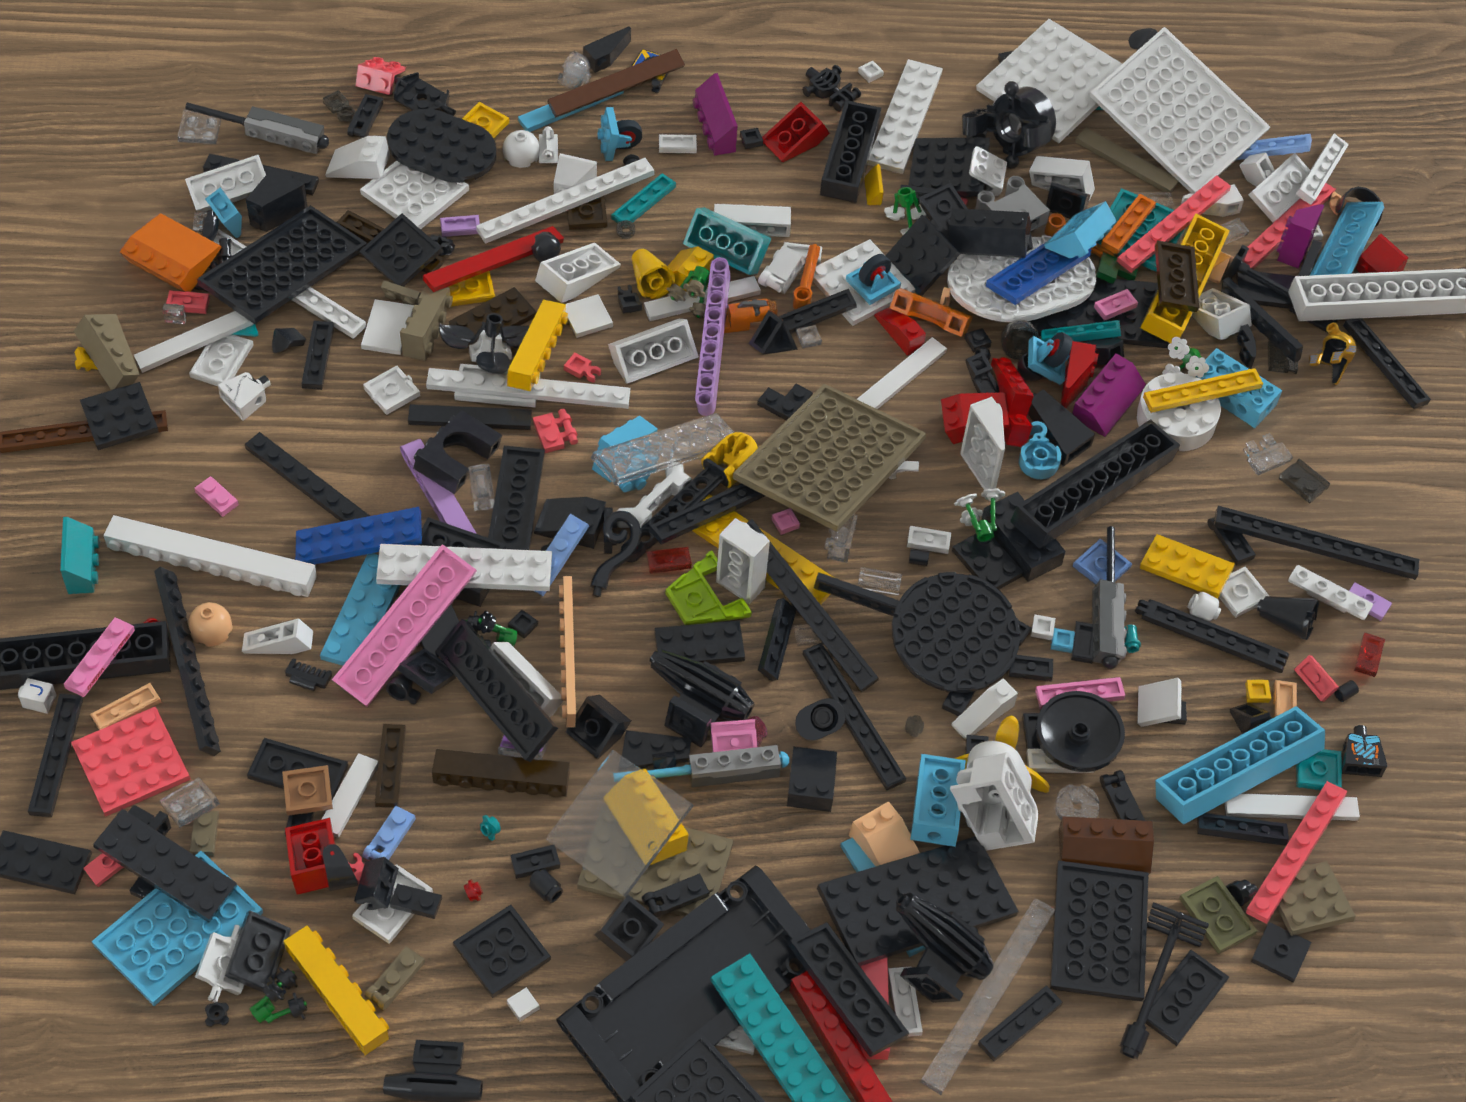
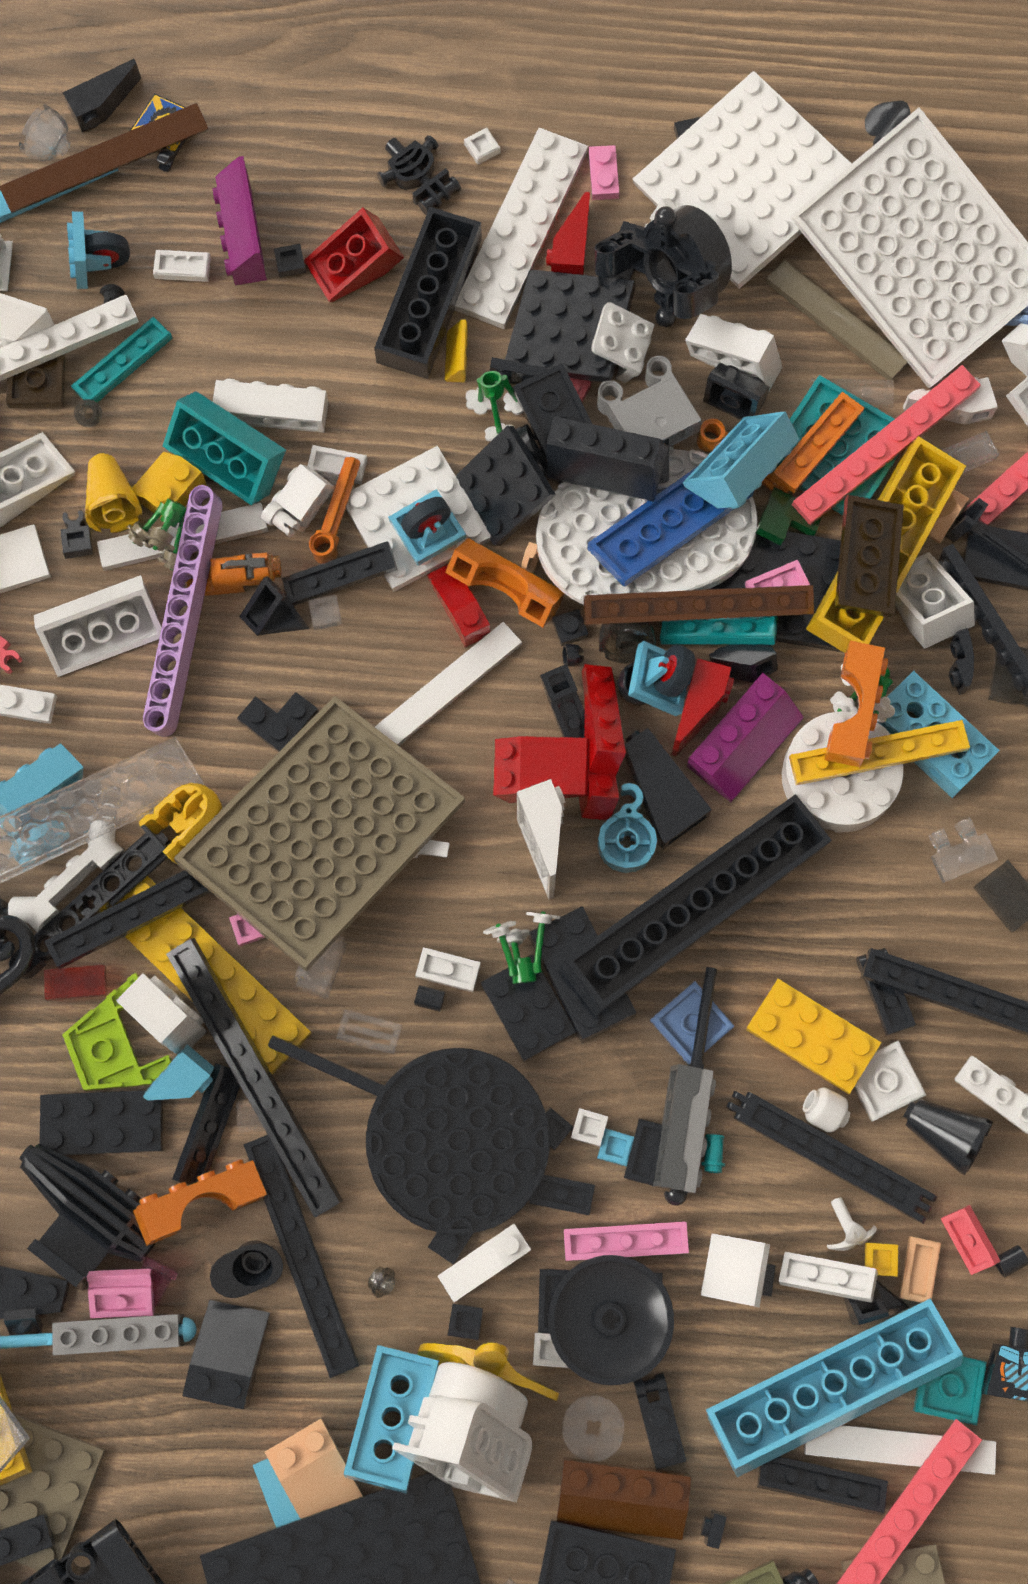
camera: 10 degrees right, 20 degrees up
(757, 604) = (181, 1077): none -> medium azure slope
(801, 671) = (235, 1187): none -> orange arch
(942, 119) = (570, 241): none -> red slope
(955, 83) = (603, 172): none -> bright pink plate
(1067, 312) = (698, 604): none -> reddish brown plate
(1172, 859) = (713, 1528): none -> black plate
(1184, 340) = (862, 670): none -> orange arch
(1224, 702) = (828, 1277): none -> white plate
(1236, 675) = (854, 1232): none -> white plant

